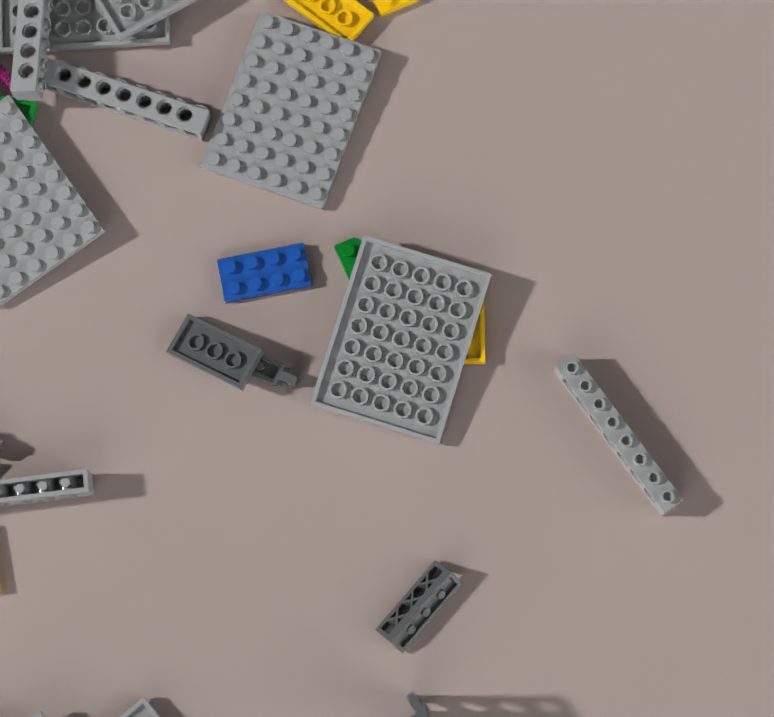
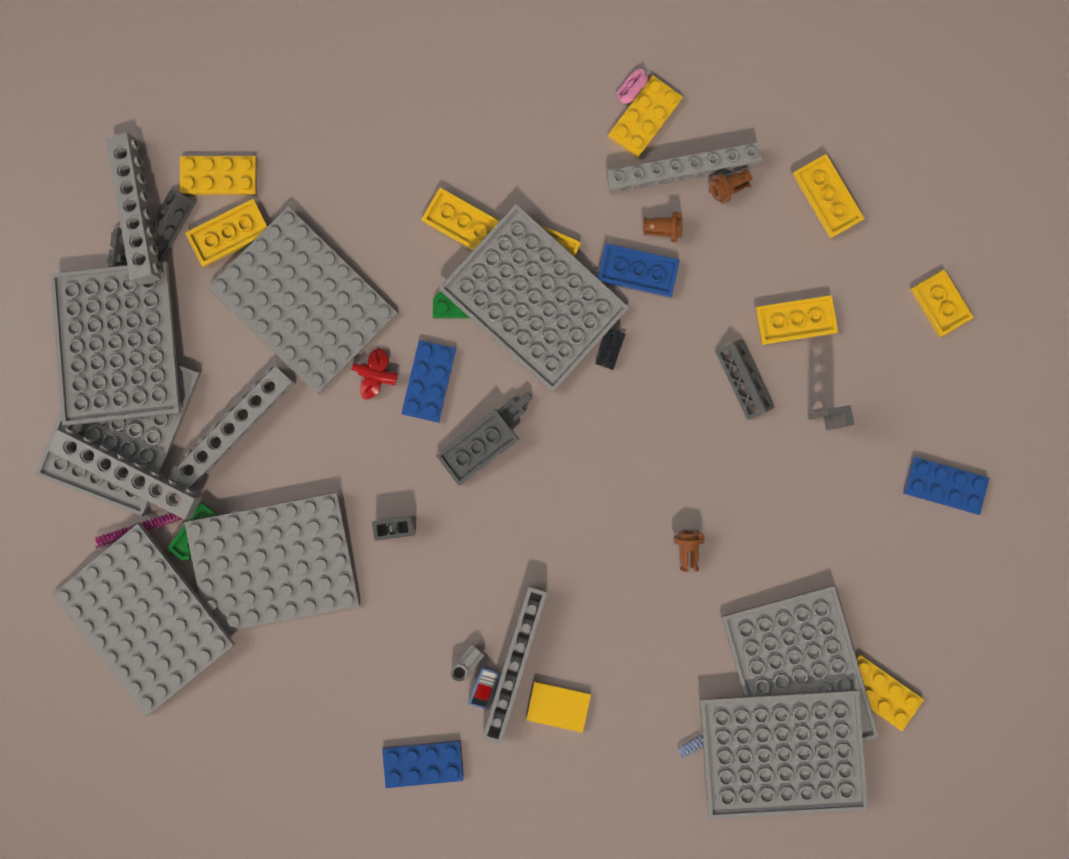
camera: 65 degrees left, 10 degrees up
(91, 304) = (393, 528): none -> dark grey brick
(211, 622) = (689, 541): none -> dark orange piece
(246, 214) = (374, 374): none -> red plant
(385, 445) = (610, 349): none -> black hinge
(449, 224) = (458, 219): none -> yellow plate
(484, 437) = (638, 270): none -> blue plate
(510, 633) = (796, 320): none -> yellow plate
(546, 448) = (664, 226): none -> dark orange piece
(623, 492) = (723, 187): none -> dark orange piece
(656, 370) = (645, 116): none -> yellow plate
(665, 607) = (828, 196): none -> yellow plate
(680, 341) = (632, 86): none -> bright pink plate

